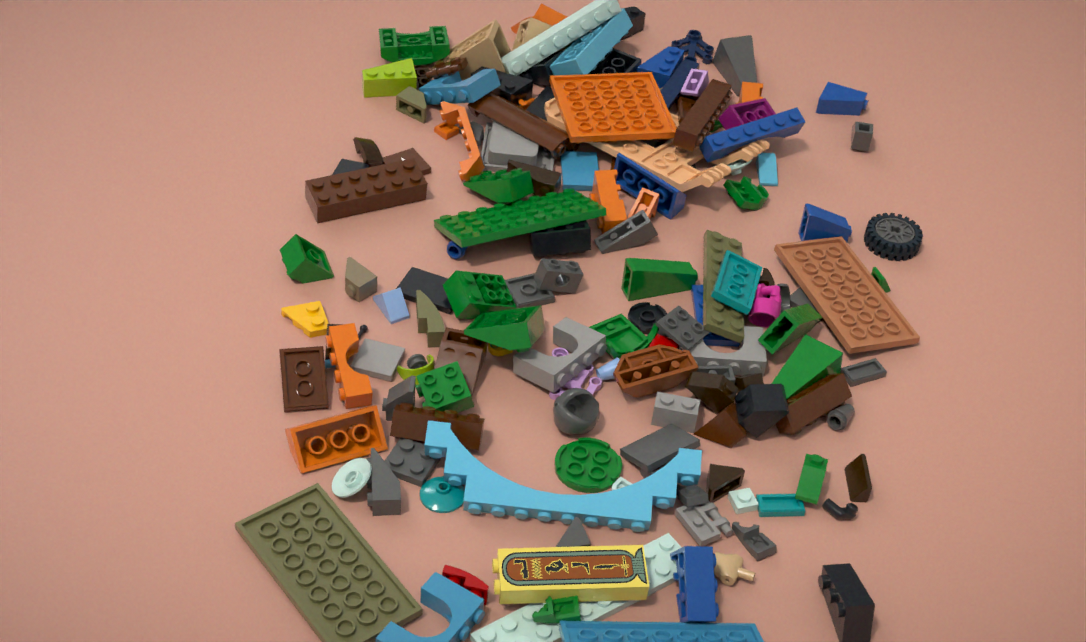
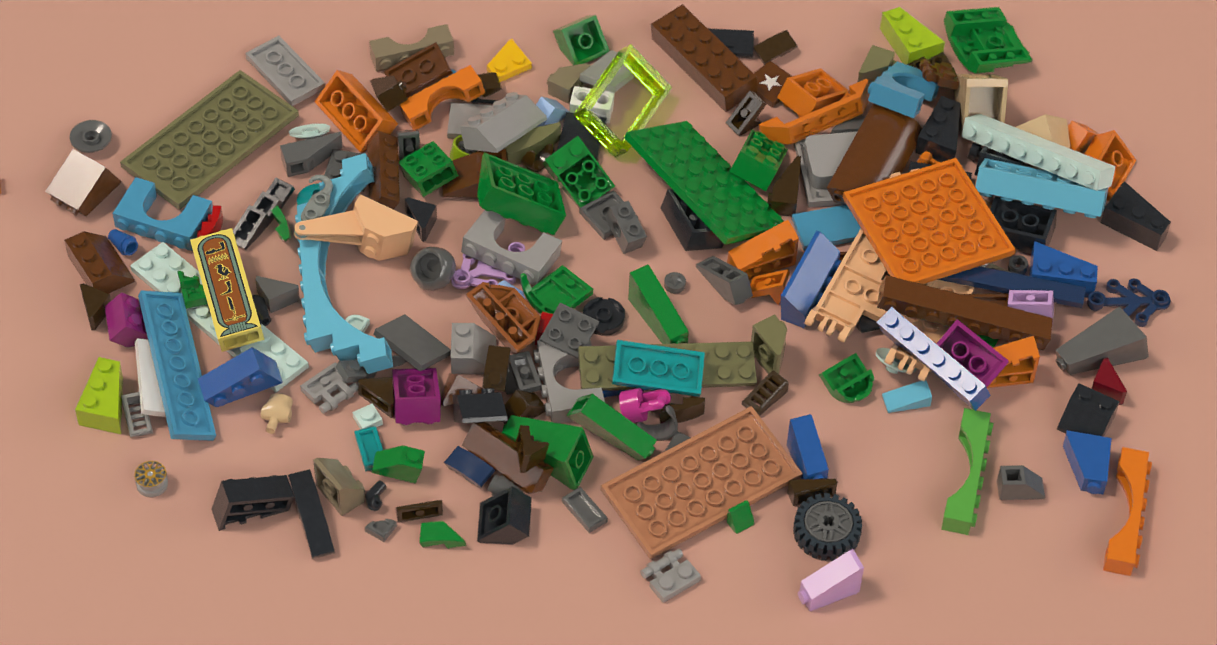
camera: 80 degrees right, 10 degrees up
(248, 487) = (285, 70): none -> light grey plate
(262, 398) = (387, 53): none -> dark tan arch
(329, 400) = (389, 91): none -> dark brown slope
(361, 246) = (595, 71): none -> light grey tile
(392, 269) = (602, 107): none -> white brick
(410, 241) = (646, 75): none -> clear neon green door
(411, 325) = (501, 123): none -> light grey slope
(433, 143) = (810, 91): none -> orange slope
(443, 179) = (746, 114): none -> dark brown slope
(451, 539) = (259, 216): none -> black slope
(459, 317) = (534, 161): none -> dark brown helmet
(478, 520) = (283, 230): none -> green slope
(501, 413) = (422, 212): none -> black slope
(515, 448) = (370, 225): none -> light nougat slope
(587, 465) = (381, 295): green tile -> none
(617, 267) = (674, 282): none -> dark grey tile
(717, 216) = (769, 343): none -> olive slope
(732, 449) = (416, 396): none -> magenta slope
(749, 235) = (773, 382): none -> dark brown slope
(755, 543) = (318, 432): dark grey slope -> none
(770, 75) = (1109, 383): none -> dark red slope
(798, 90) = (1088, 412): none -> black slope
(814, 434) = (469, 466): none -> dark blue slope
(830, 373) = (529, 451): none -> dark brown slope
(834, 530) = (338, 484): none -> dark tan slope
(858, 237) = (801, 489): none -> dark brown slope
(864, 557) = (311, 514): none -> black slope
(875, 422) = (504, 517): none -> black slope
(876, 166) = (960, 506): none -> bright green arch
(877, 513) = (381, 529): none -> dark grey tile
(889, 471) = (439, 533): none -> green slope
(916, 104) = (1121, 548): none -> orange arch
(936, 334) = (673, 581): none -> light grey plate
(952, 240) = (832, 582): none -> lavender slope

